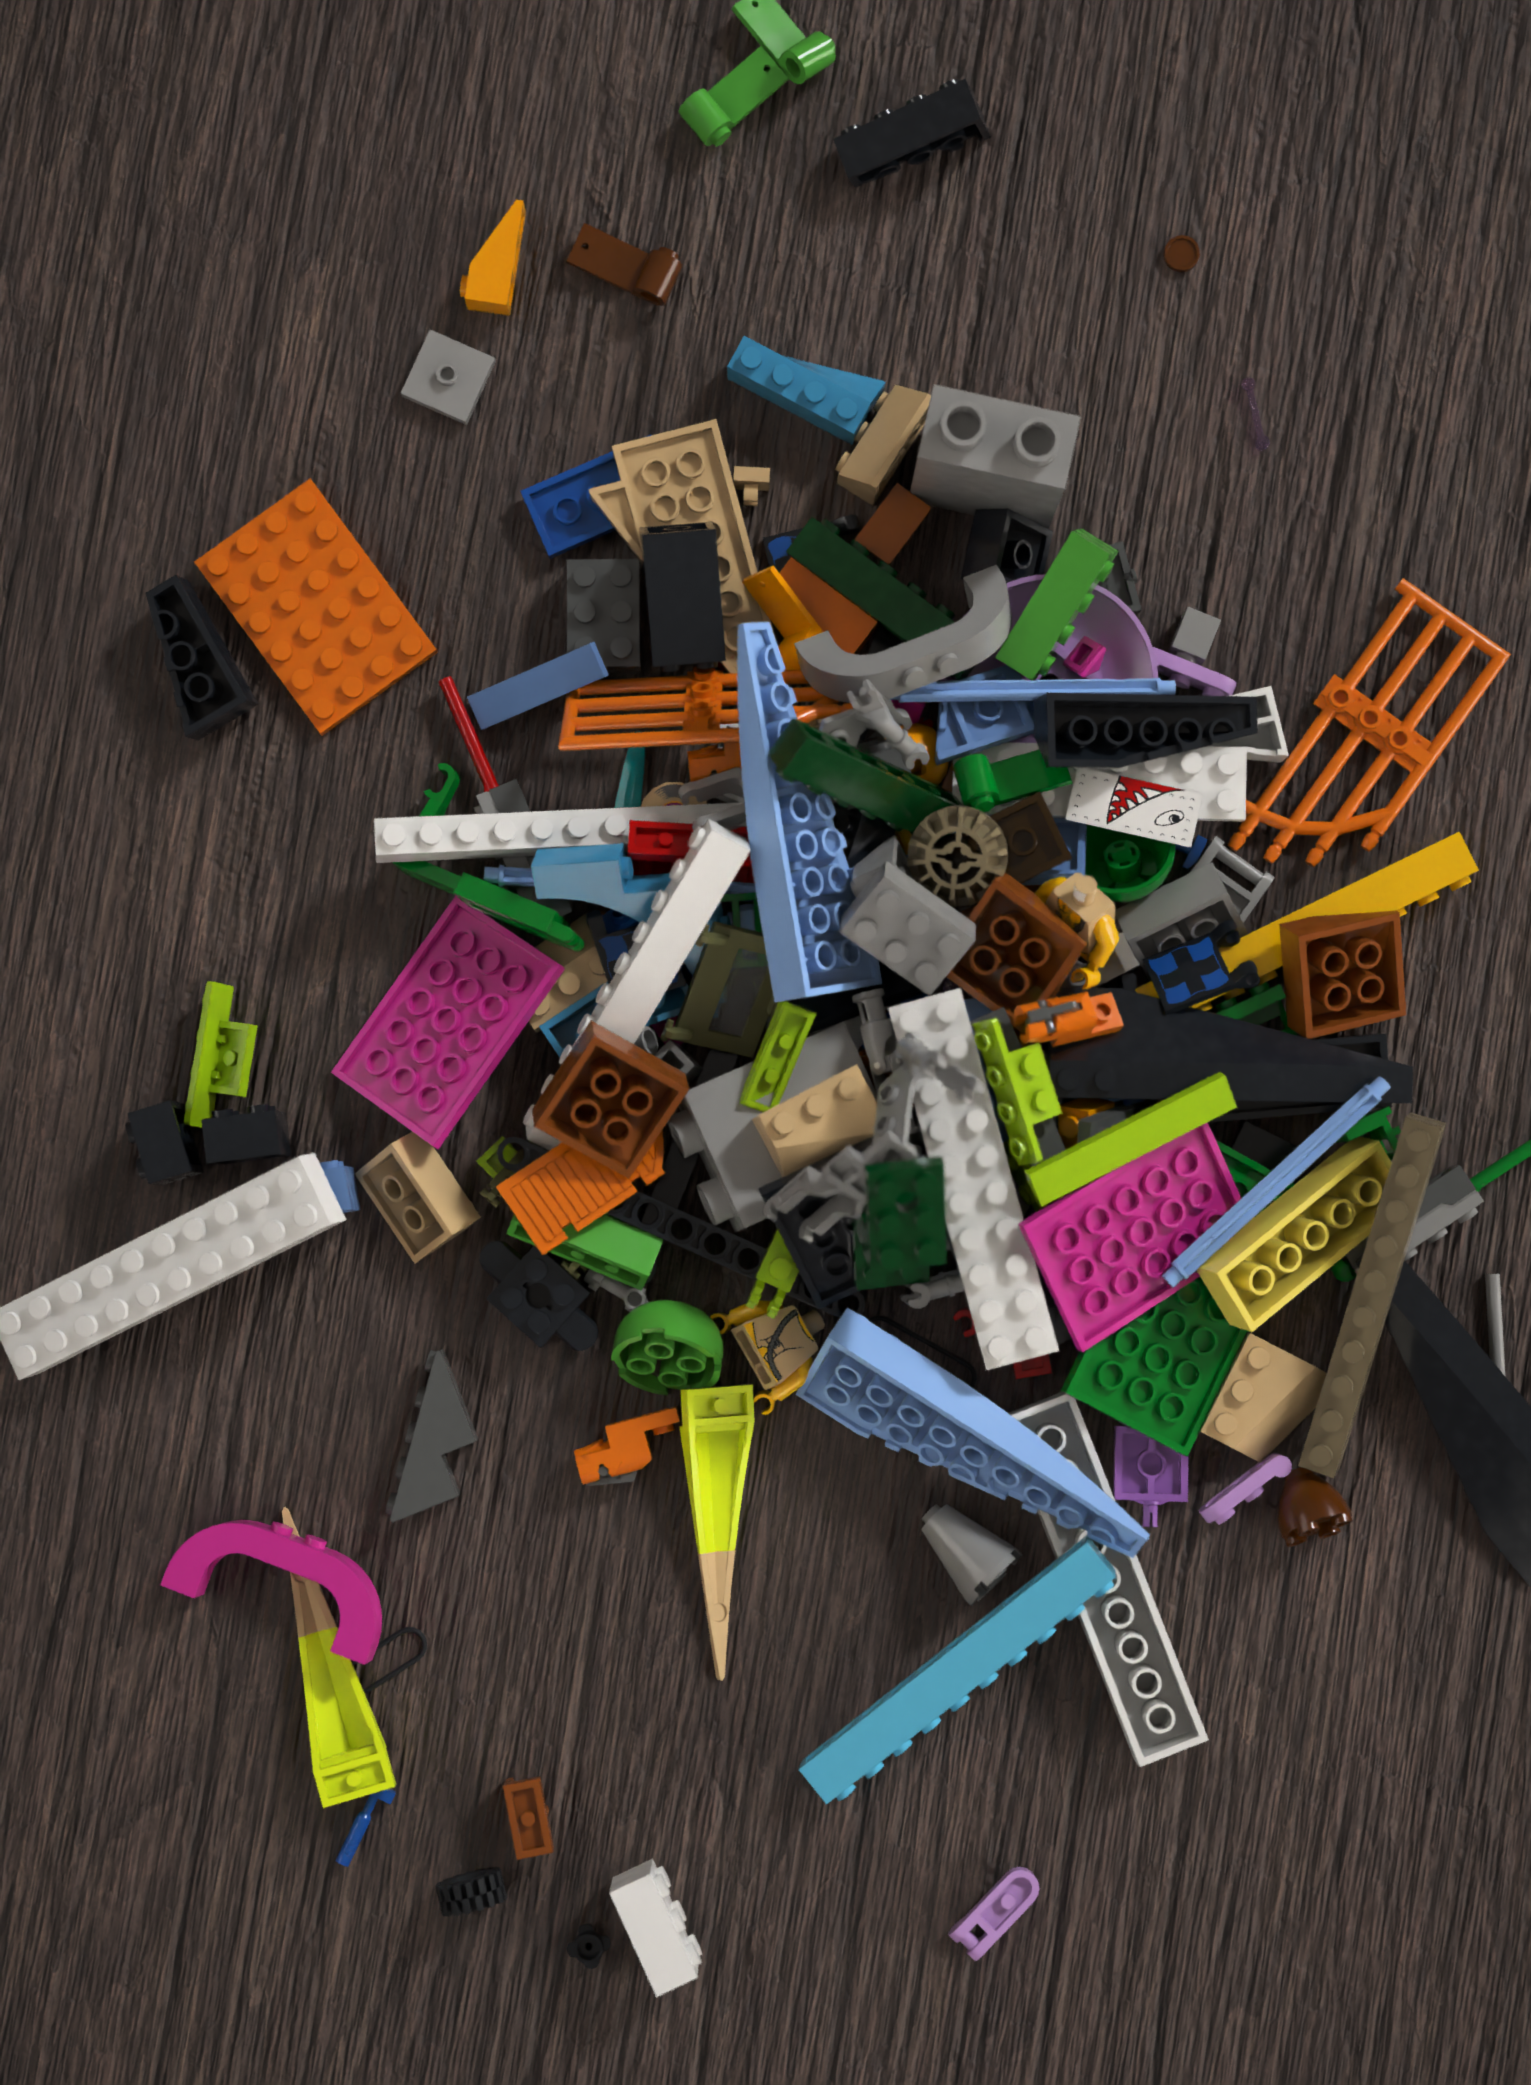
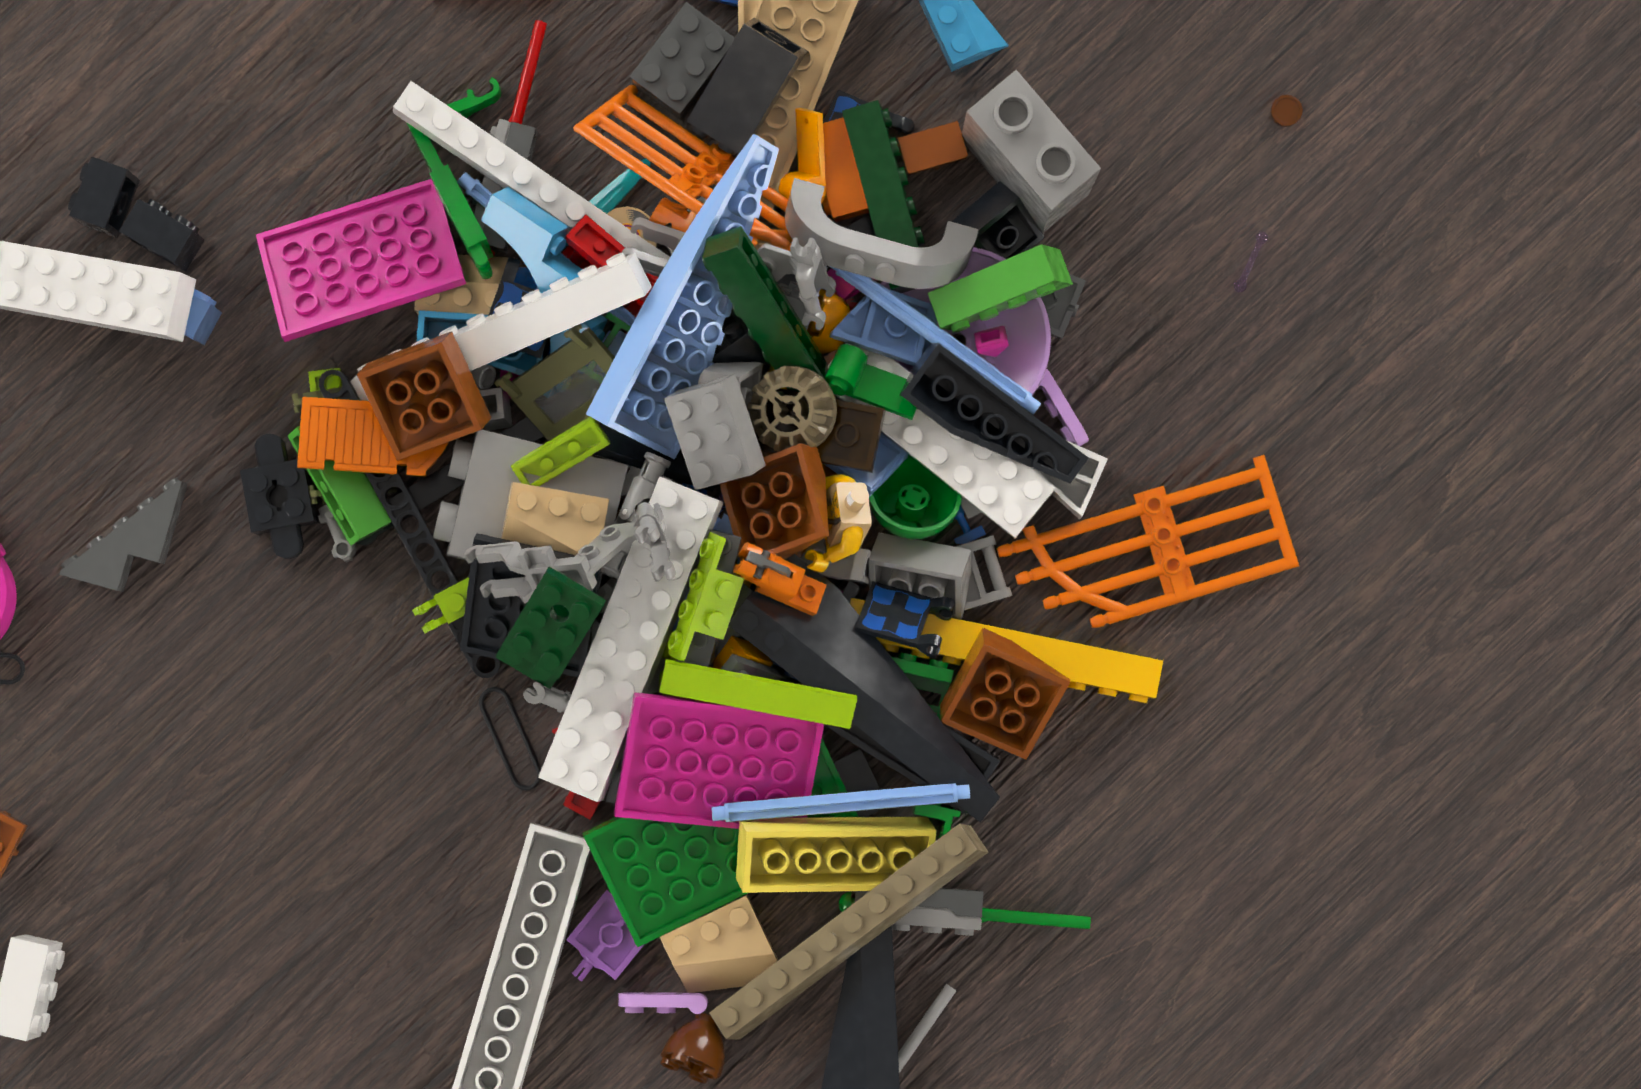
camera: 45 degrees right, 0 degrees up
(220, 1057) = (189, 165): lime bracket -> none
(417, 1195) = (249, 365): tan slope -> none
(537, 685) = (599, 74): medium blue tile -> none
(625, 1449) = (256, 647): orange plate -> none
(679, 1336) = (352, 597): bright green cylinder -> none
(716, 1452) = (317, 697): neon yellow plate -> none
(751, 480) = (858, 44): tan tile -> none
(775, 1348) = (414, 656): torso -> none
(883, 442) = (959, 91): tan slope -> none
(901, 1396) = (471, 752): light blue wedge -> none
(957, 1670) = (366, 971): medium azure brick -> none
(968, 1551) = (437, 898): light grey cone -> none
(1134, 806) = (944, 469): white sticker -> none
(1194, 636) = (1084, 385): light grey brick -> none

